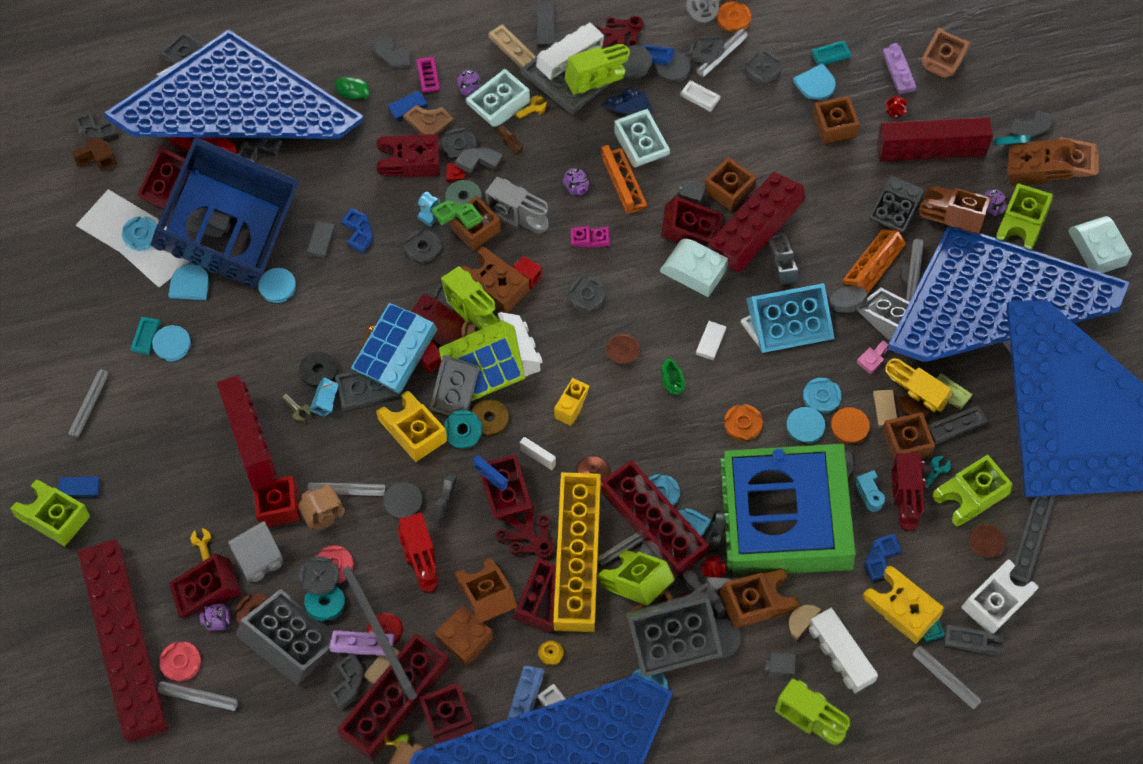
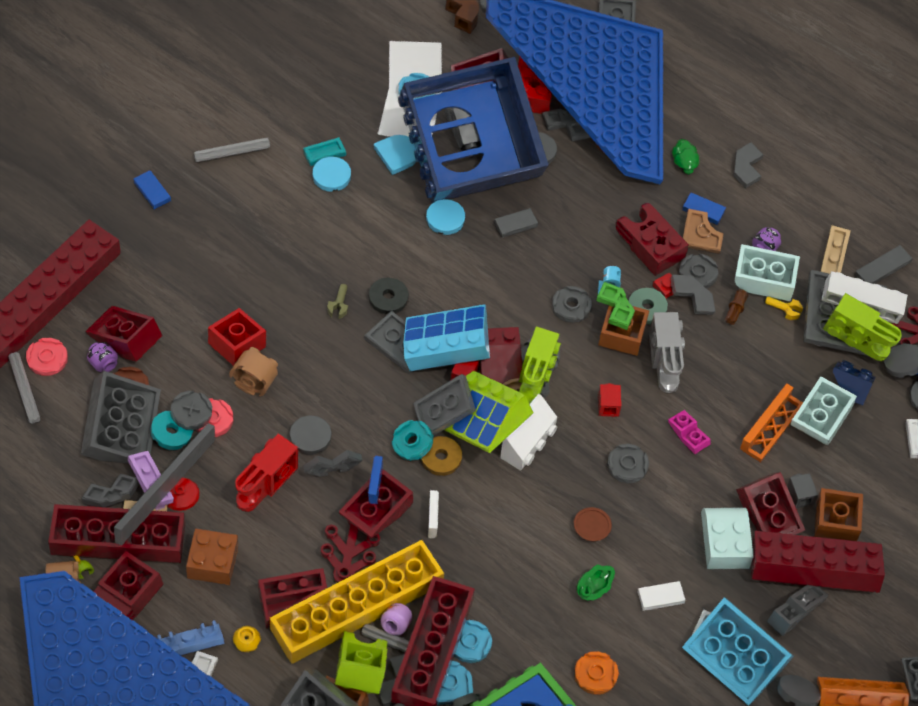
camera: 50 degrees right, 5 degrees down
(52, 513) = (112, 185): lime brick -> none
(202, 544) = (162, 300): yellow bar -> none
(247, 432) = (279, 272): dark red brick -> none
(256, 552) = (176, 347): light grey slope -> none
(324, 397) = (363, 314): medium azure leg -> none
(352, 489) = (292, 387): light grey axle -> none
(359, 223) = (546, 252): blue tile -> none
(413, 427) = (383, 400): yellow brick -> none
(426, 62) = (753, 192): dark pink slope -> none
(486, 591) = (262, 546): dark orange brick -> none
(499, 280) = (578, 381): dark orange brick -> none
(571, 402) = (503, 511): yellow slope -> none
(576, 181) = (736, 386): medium lavender head -> none
(594, 465) = (455, 569): copper piece -> none
(611, 532) = (396, 619): none -> lavender head

